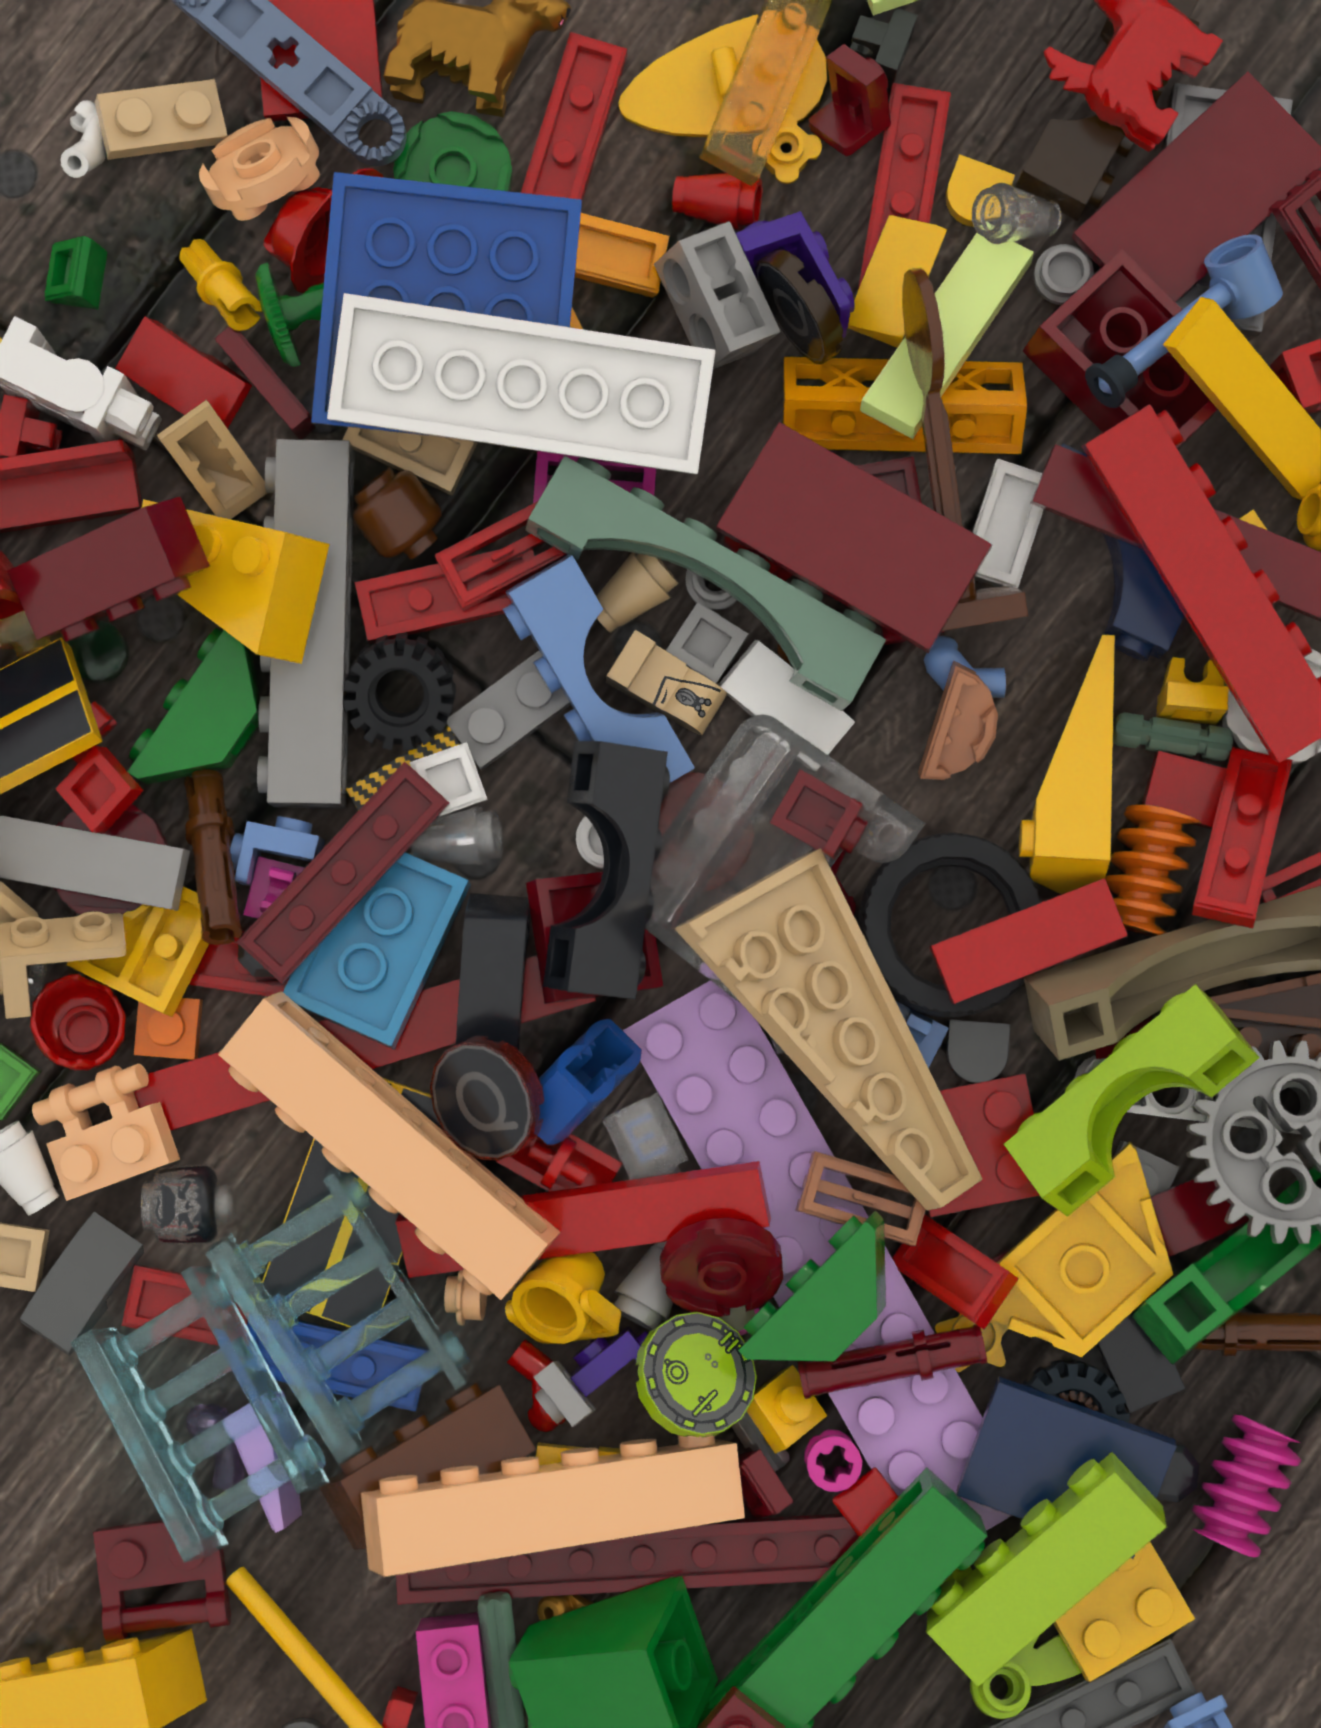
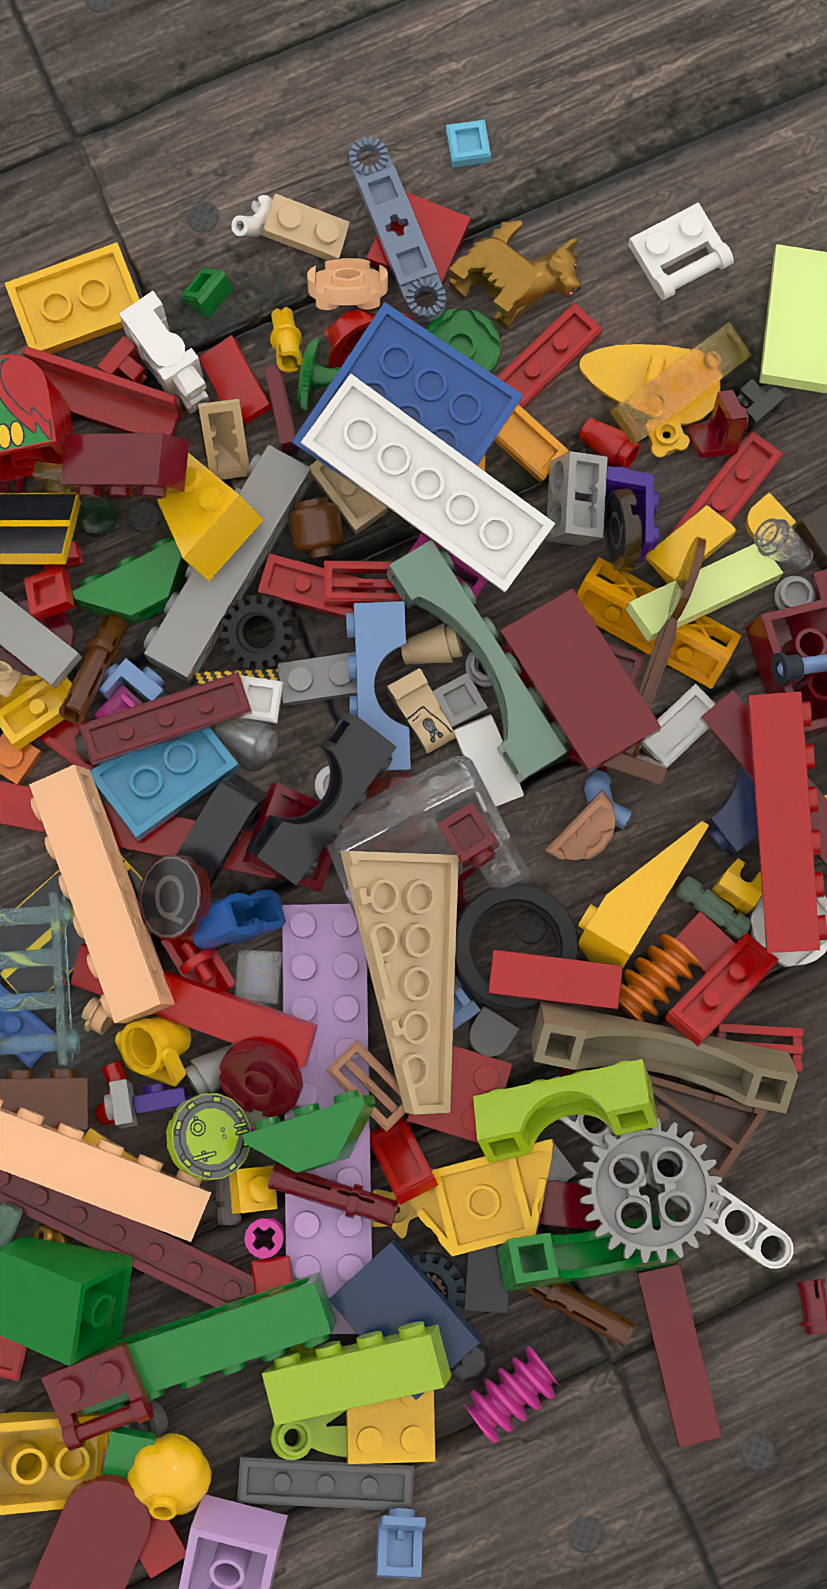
camera: 30 degrees right, 5 degrees down
(761, 1486) = (212, 1228): dark red tile -> none

